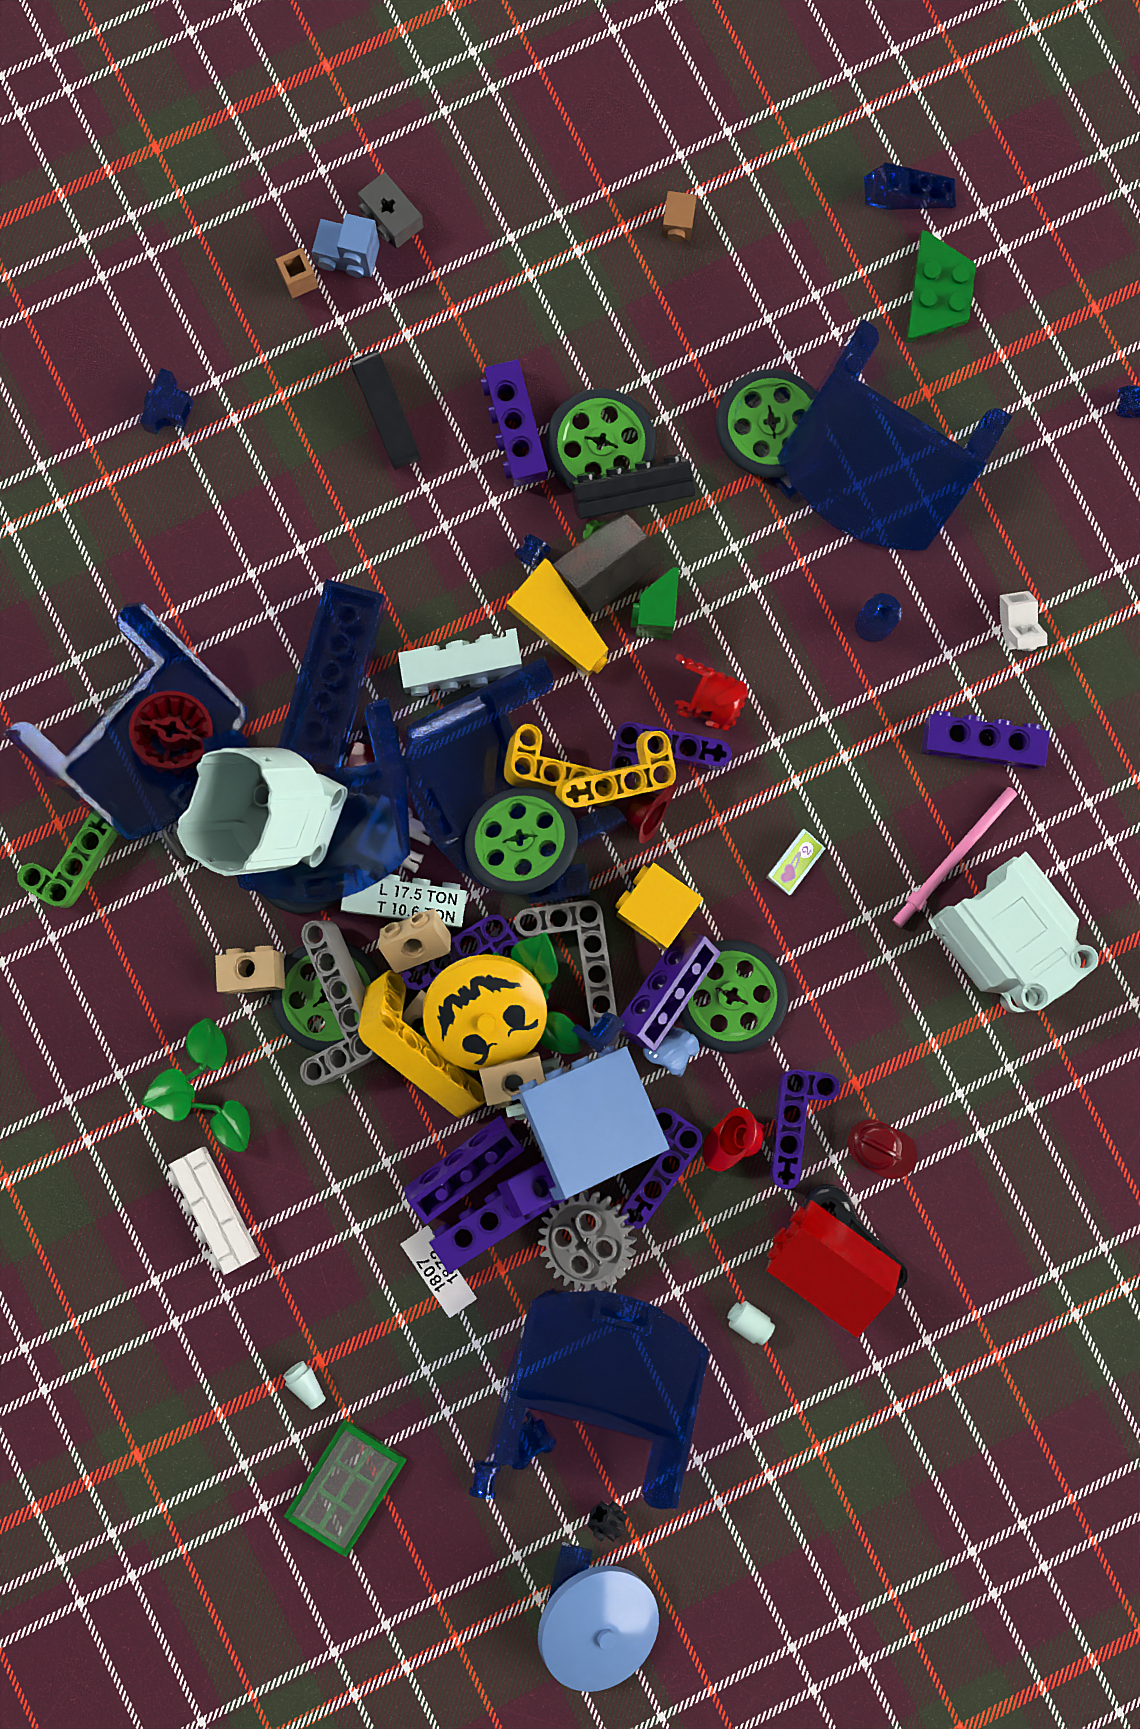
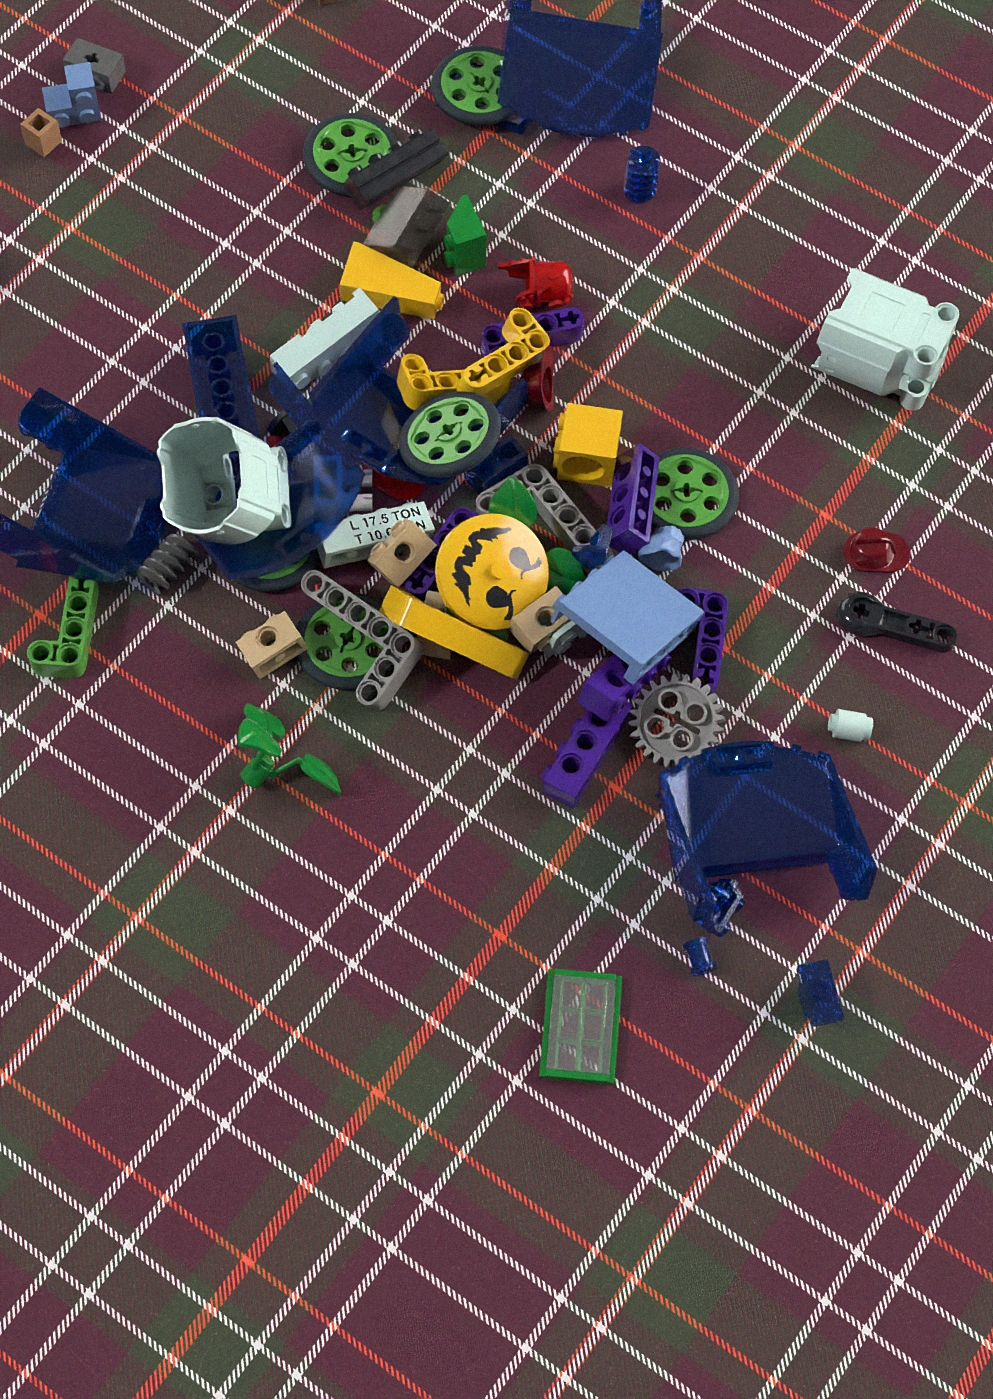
camera: 25 degrees left, 20 degrees down
(158, 717) = (108, 484): dark red gear -> none
(213, 1210) = (340, 849): white brick -> none
(304, 1385) = (498, 955): light aqua cone -> none
(385, 409) = (148, 177): black beam -> none
(448, 1289) = (576, 822): white sticker -> none
(463, 1169) = (540, 713): dark purple brick -> none
(509, 378) = (276, 166): dark purple brick -> none
(532, 551) = (339, 246): clear blue wheel -> none
(598, 1628) = (869, 1022): medium blue dish -> none
(607, 1521) = (824, 936): black gear -> none
(732, 1140) = (752, 590): red piece -> none
(796, 862) = (679, 375): slope -> none
(796, 1128) = (798, 563): dark purple beam -> none
(833, 1268) = (891, 639): red brick -> none
(917, 900) = (793, 358): bright pink bar -> none
(939, 743) = (776, 228): dark purple brick -> none
(1020, 621) = (752, 138): white brick -> none

